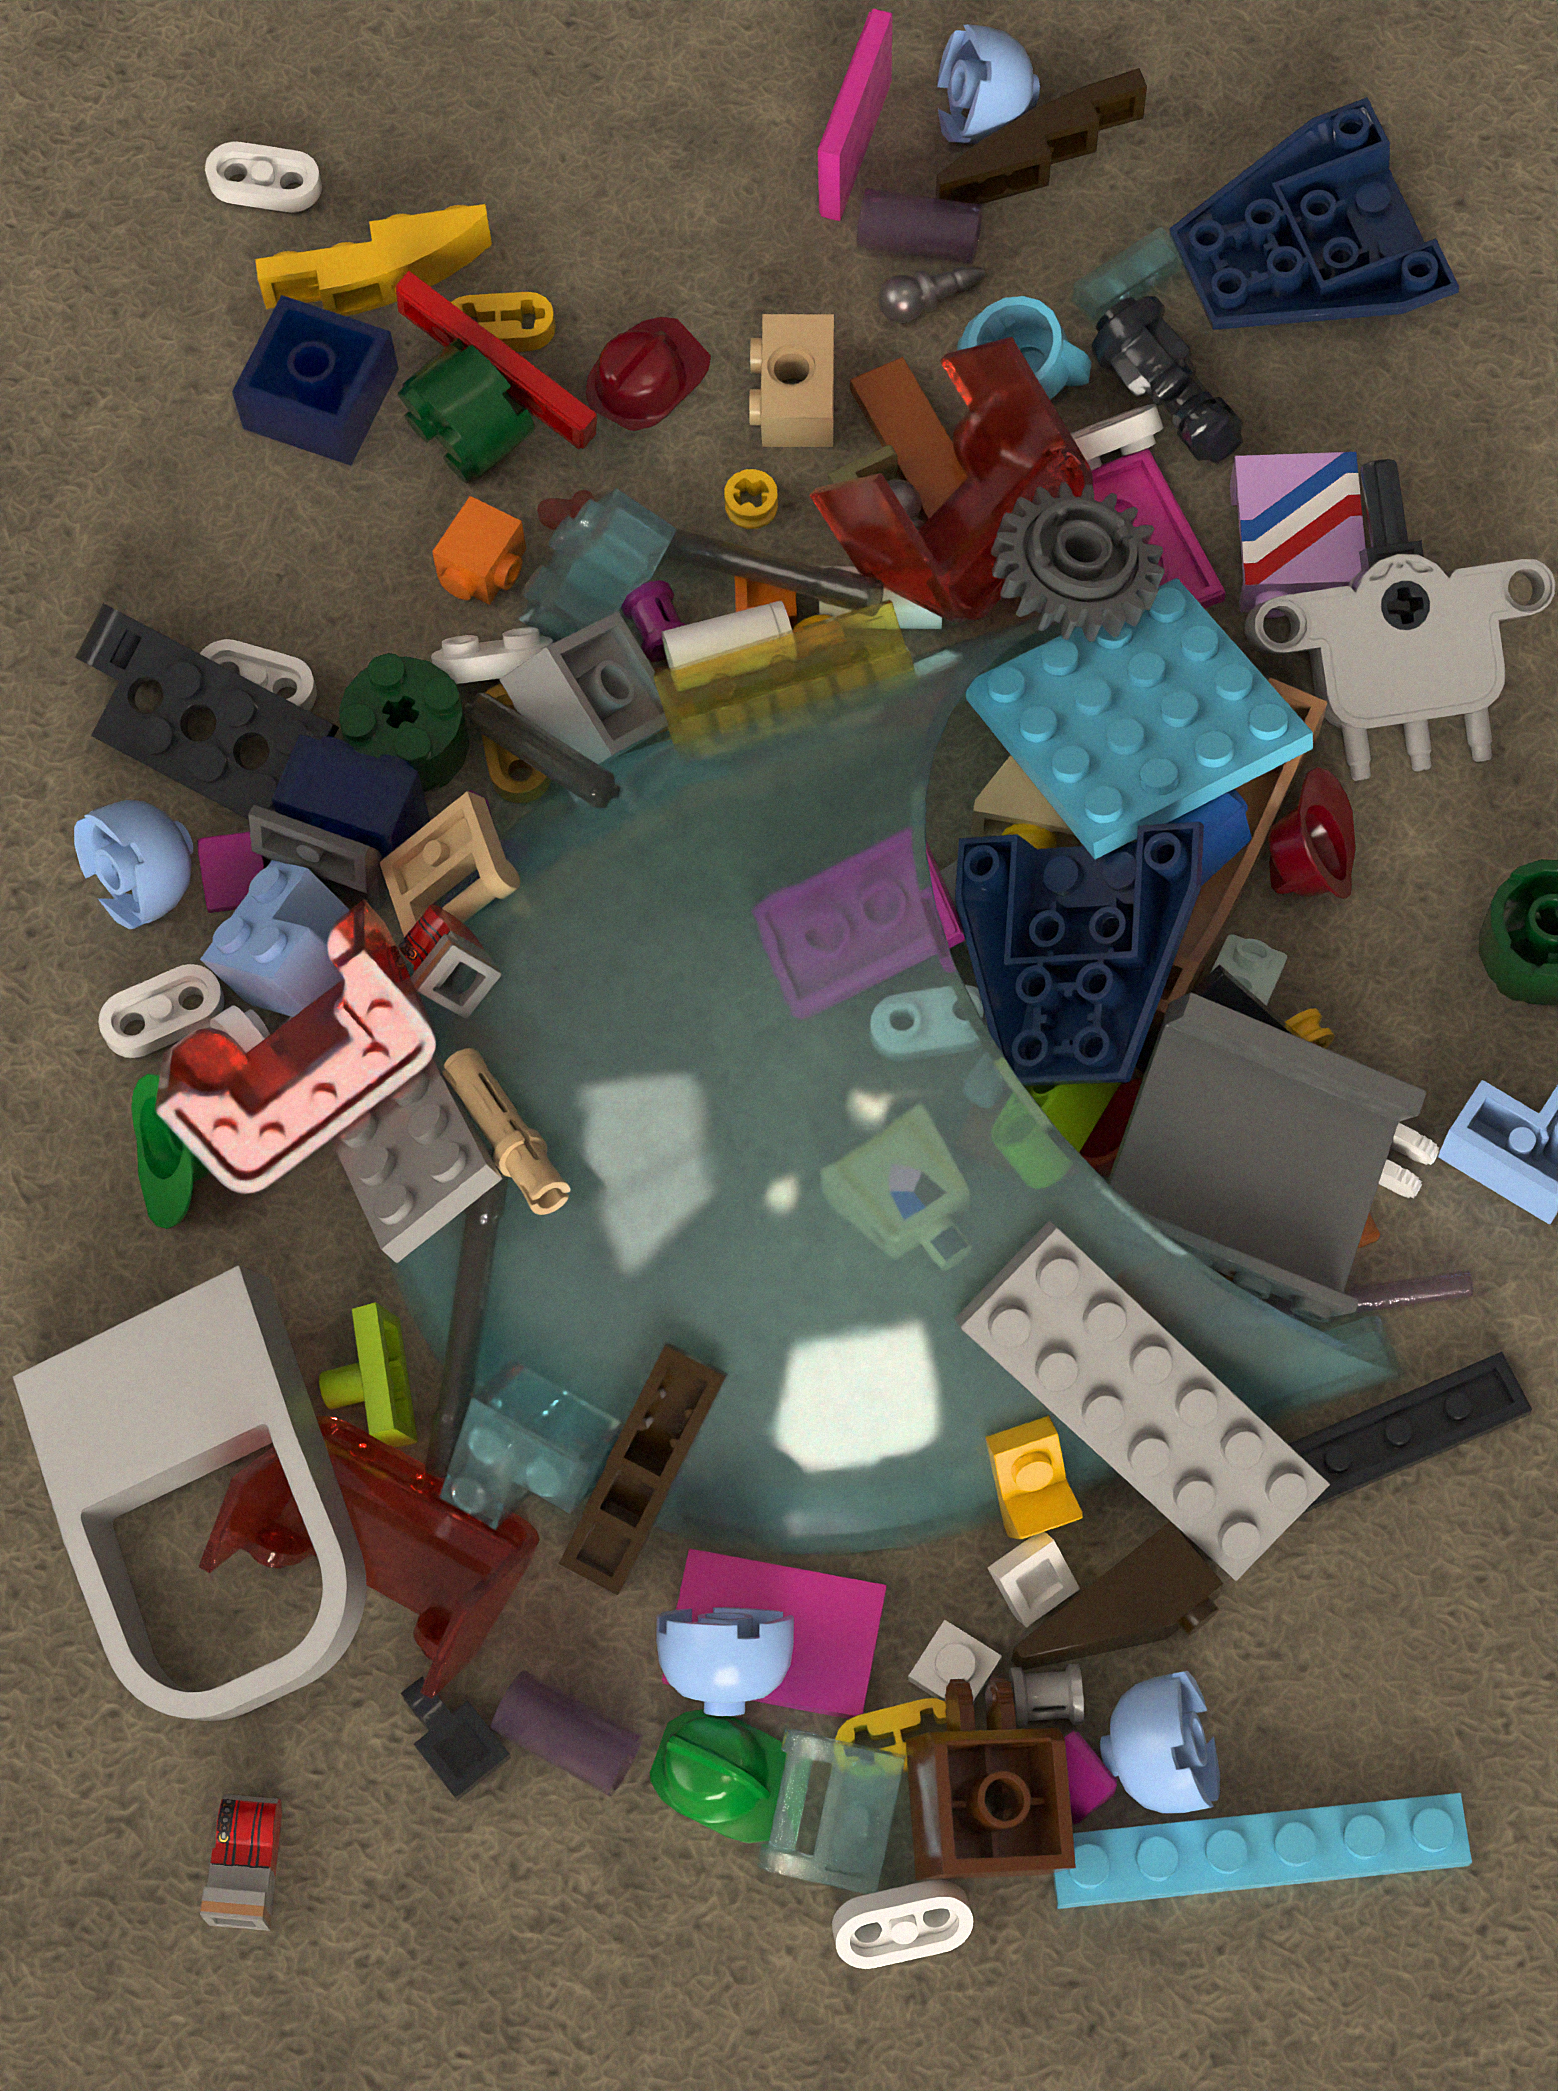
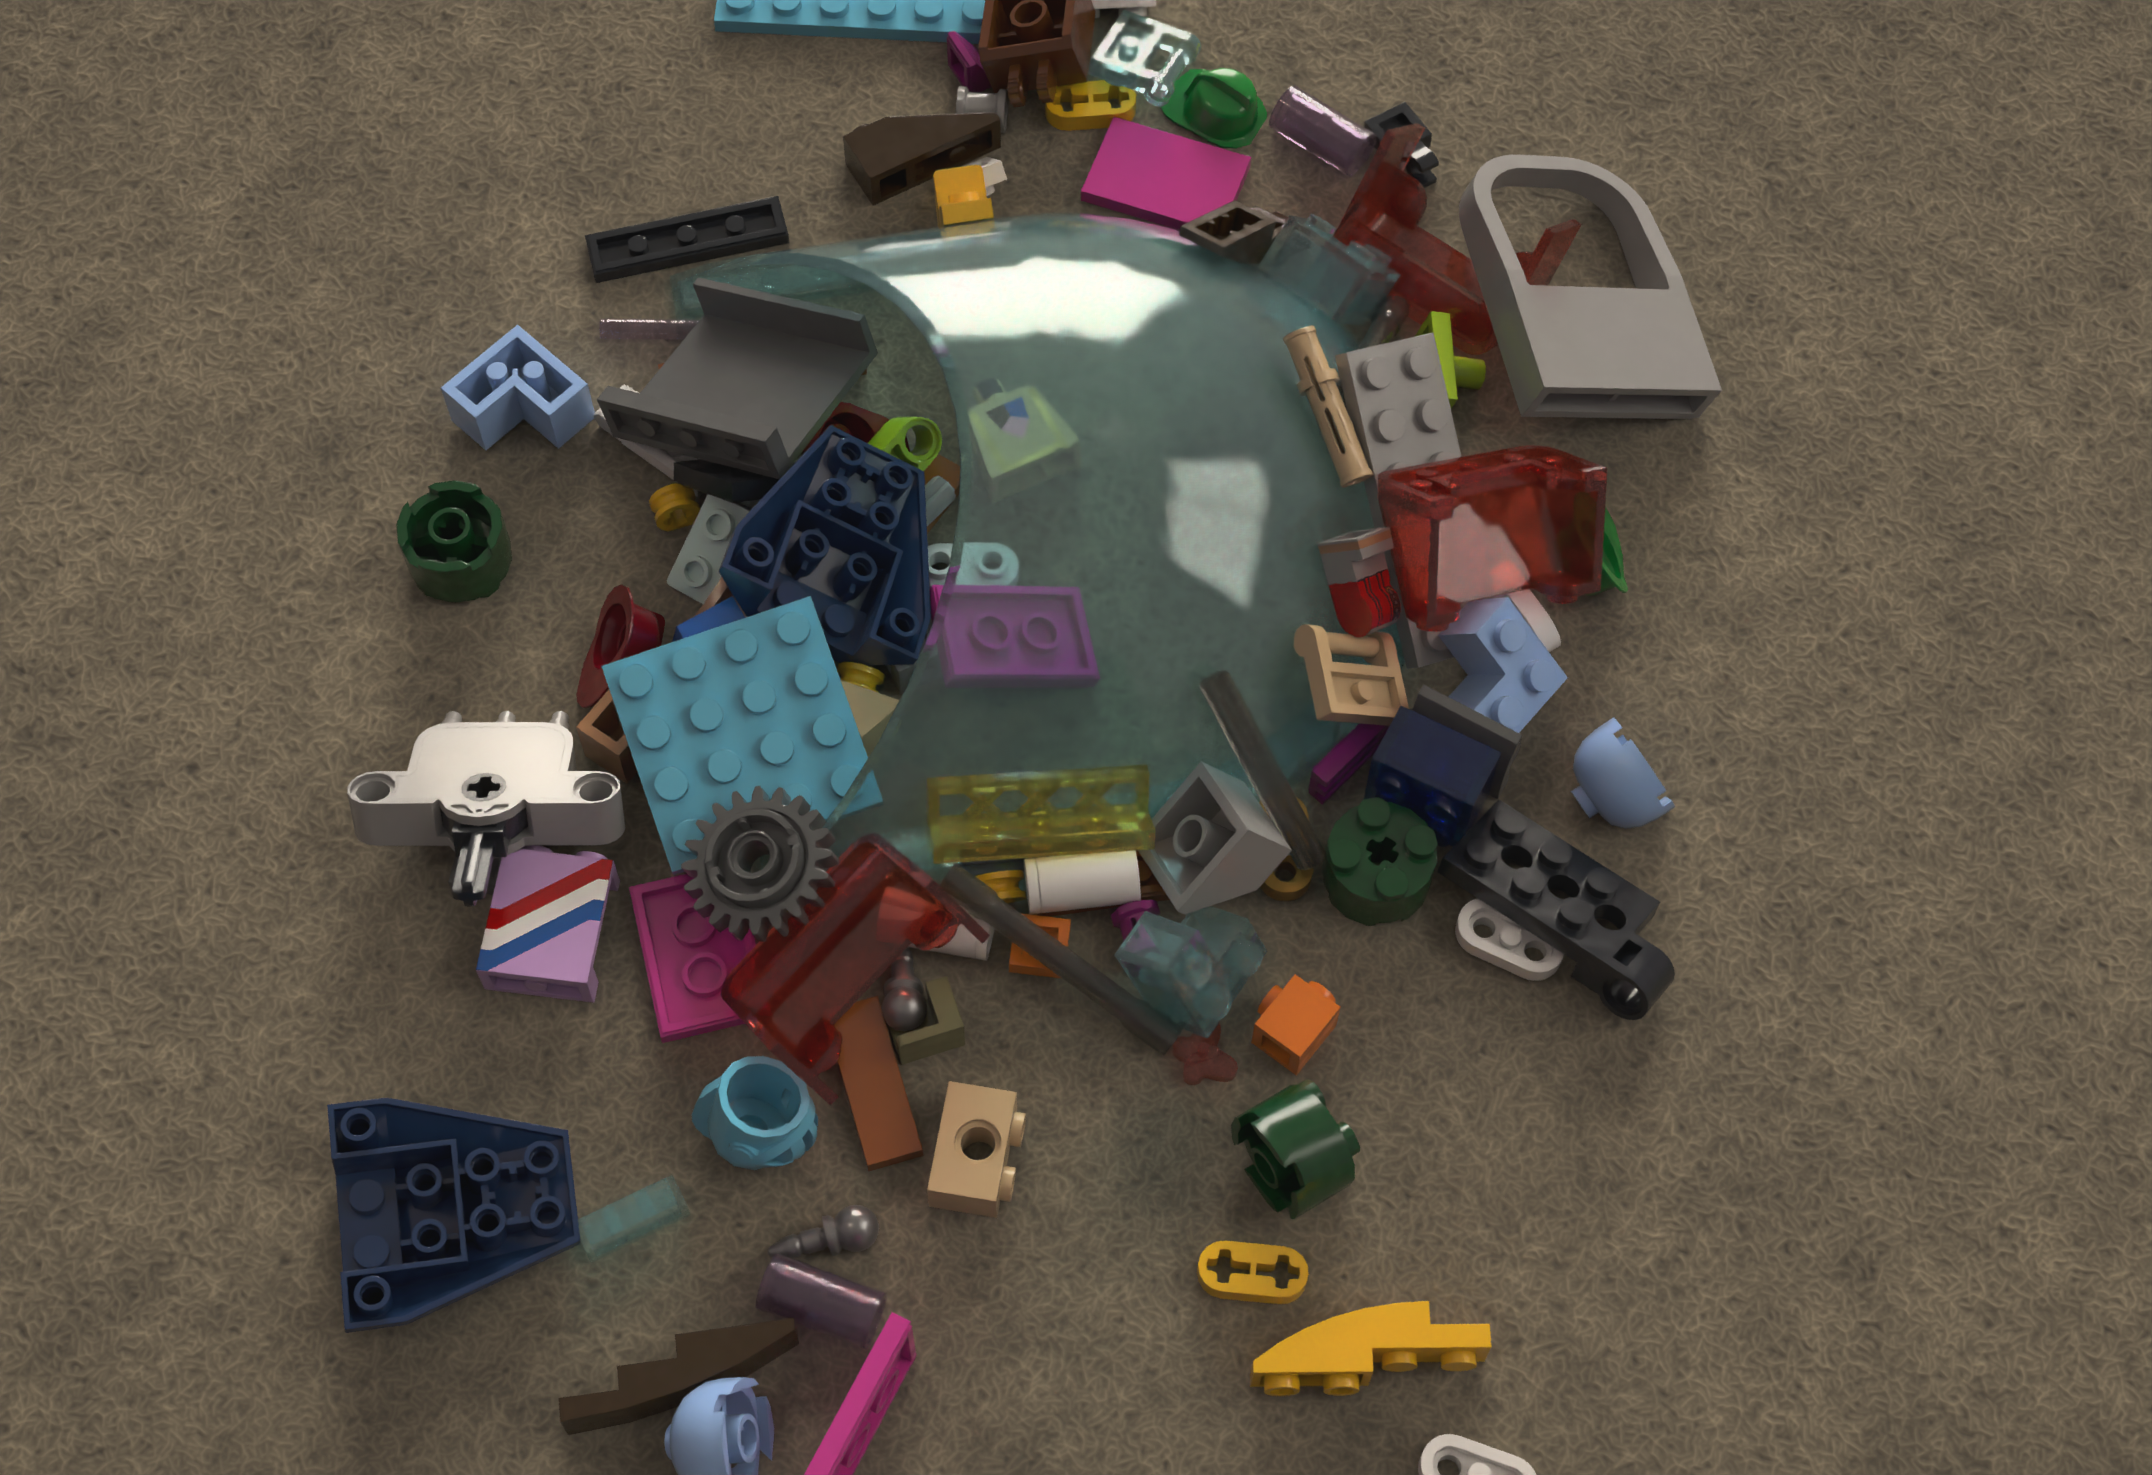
camera: 175 degrees left, 5 degrees down
(160, 1006) = (1597, 664): white plate -> none
(227, 869) = (1537, 778): magenta slope -> none
(243, 1863) = (1556, 85): leg -> none
(316, 380) = (1437, 1211): clear blue brick -> none
(473, 661) = (1294, 918): white plate -> none
(528, 384) = (1262, 1201): red tile -> none
(646, 373) = (1113, 1204): dark red piece -> none
(725, 1655) = (1204, 141): light blue cylinder -> none
(754, 483) = (1043, 1032): yellow bush -> none
(954, 1656) = (1042, 142): white plate -> none
(1128, 431) = (698, 1046): white plate -> none
(1141, 1400) = (876, 210): light grey plate -> none
(1157, 365) = (634, 1097): black animal -> none
(1162, 1747) = (914, 55): light blue cylinder -> none

